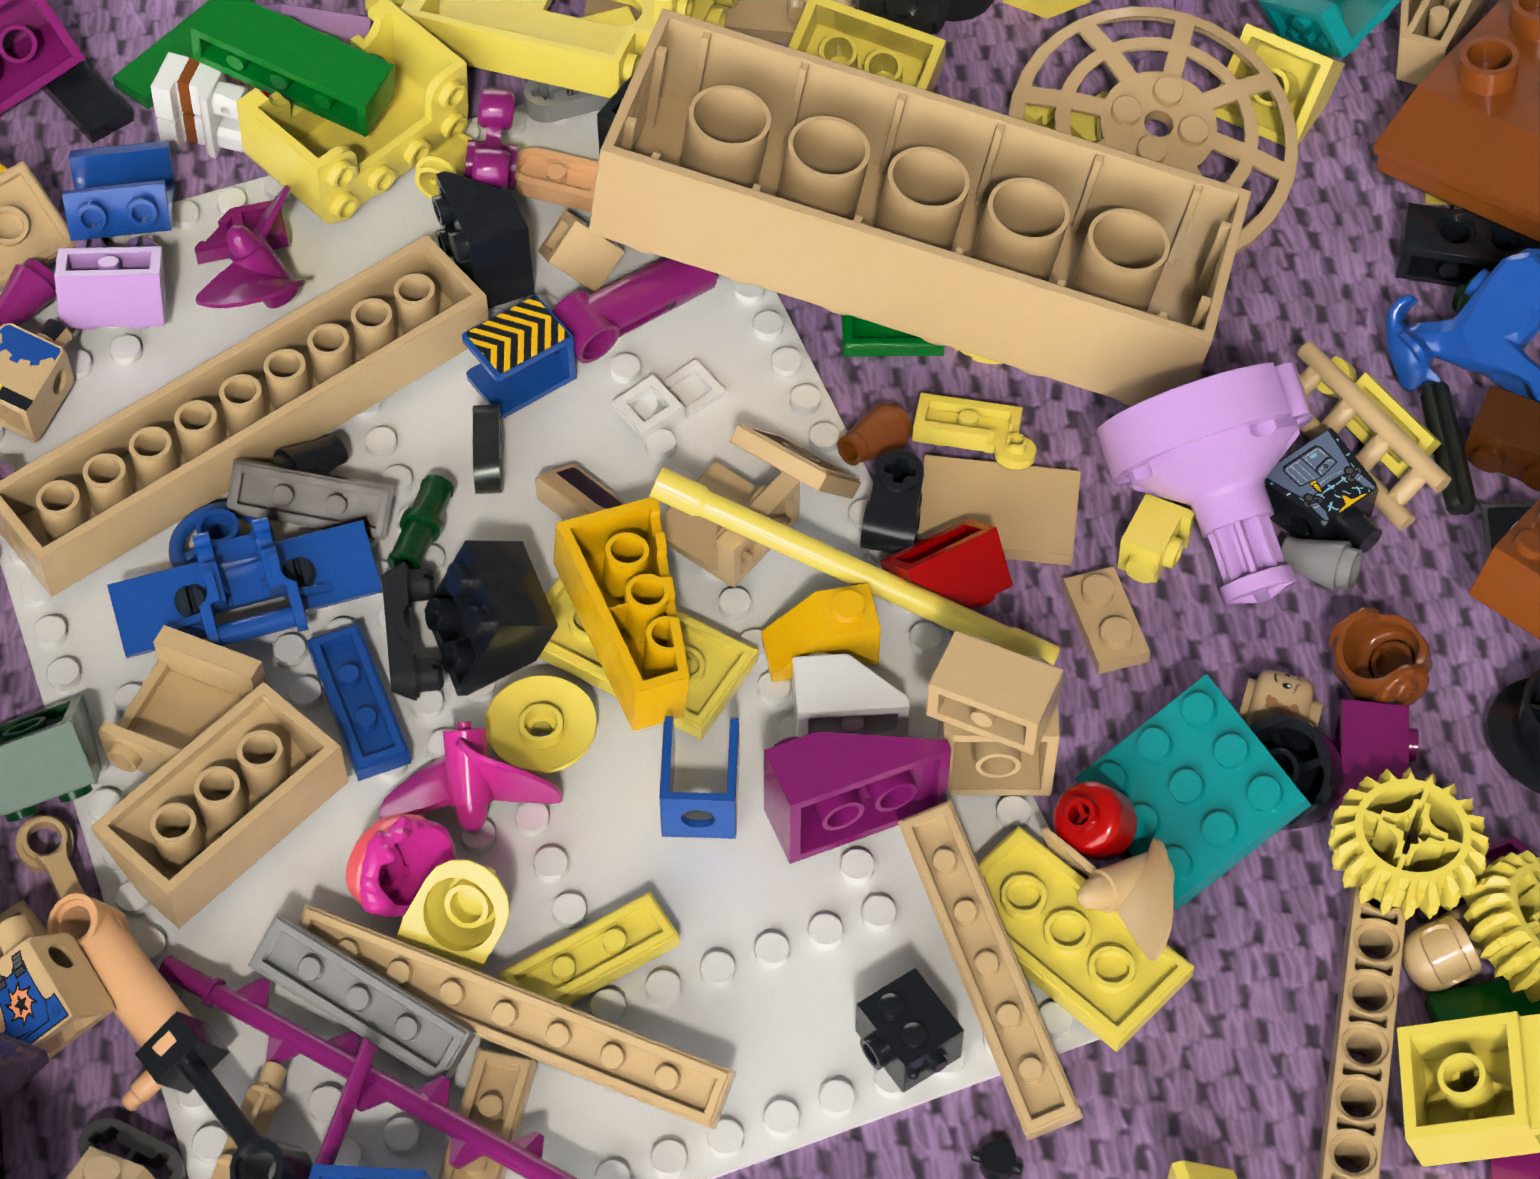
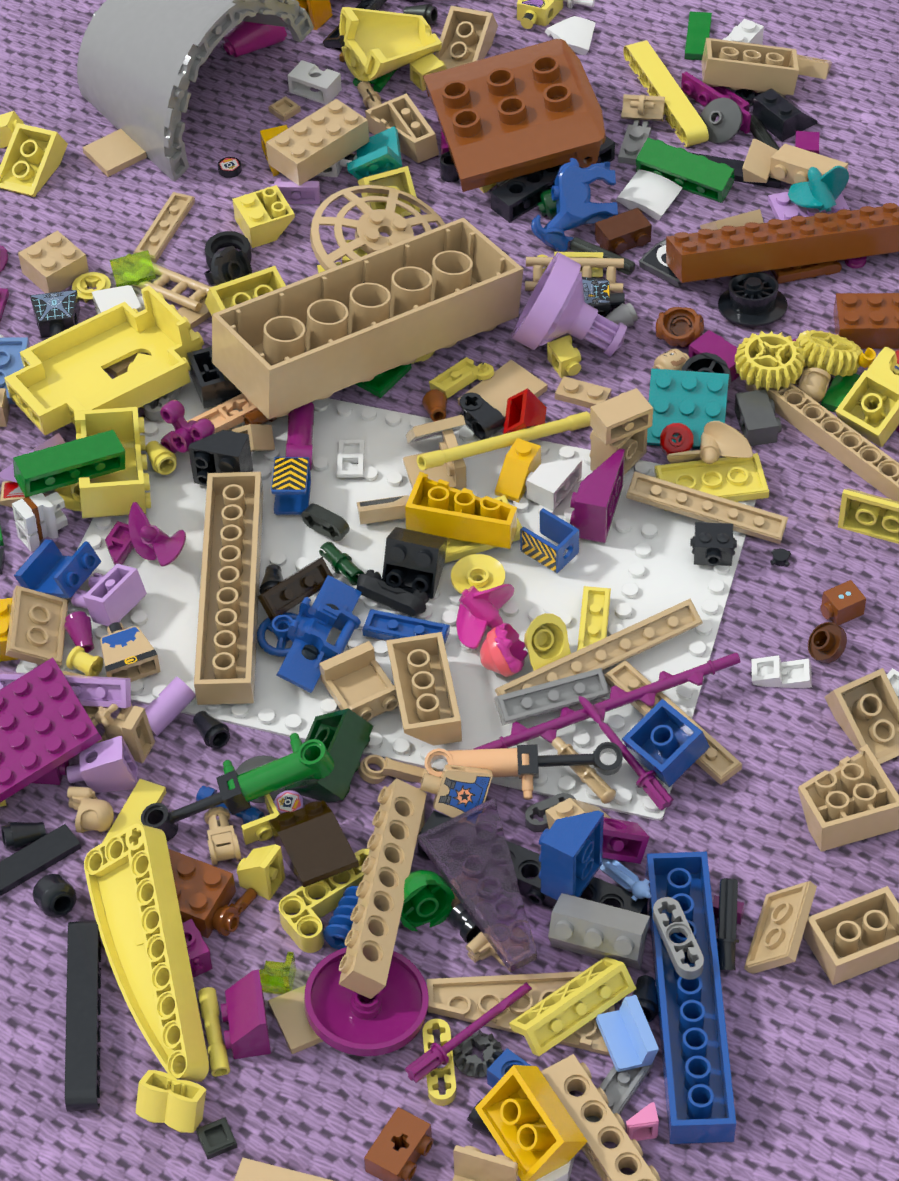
camera: 50 degrees left, 5 degrees down
(1286, 914) = (757, 417): none -> dark grey brick

